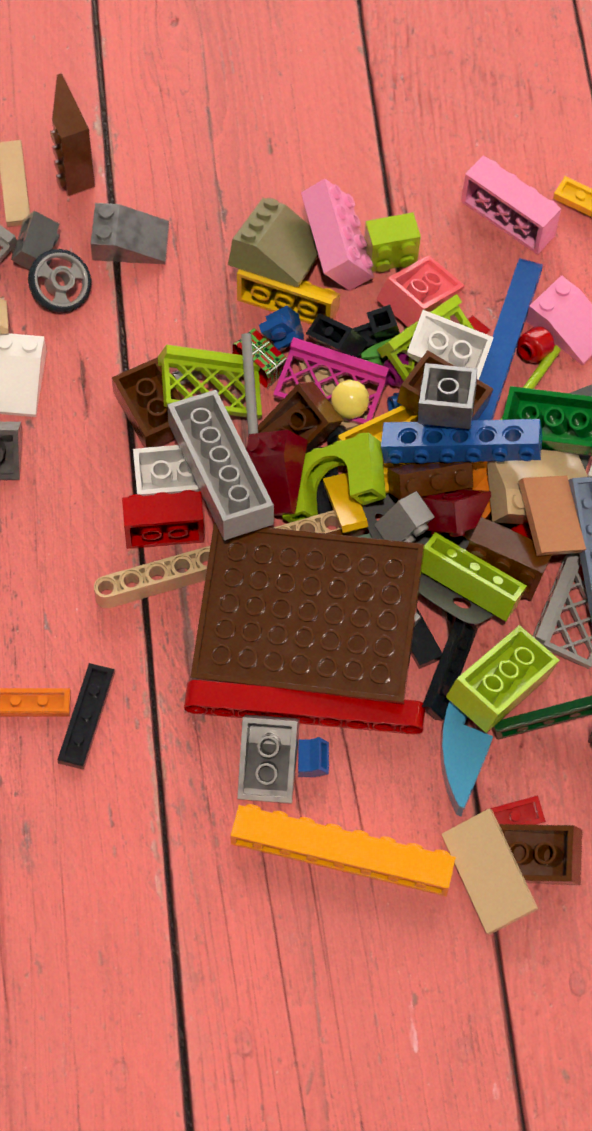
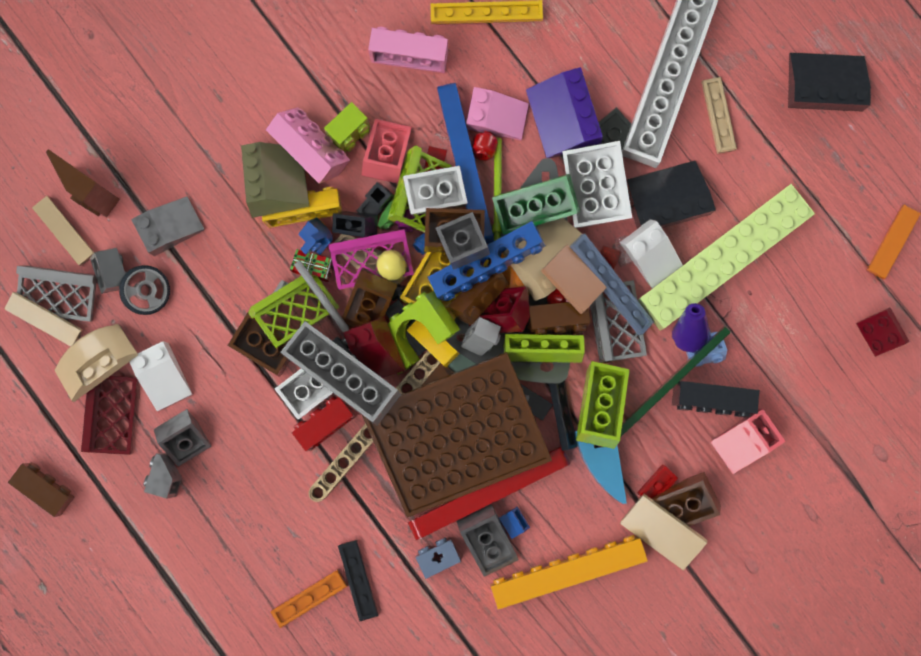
camera: 30 degrees left, 20 degrees up
(208, 750) = (431, 567): none -> sand blue brick

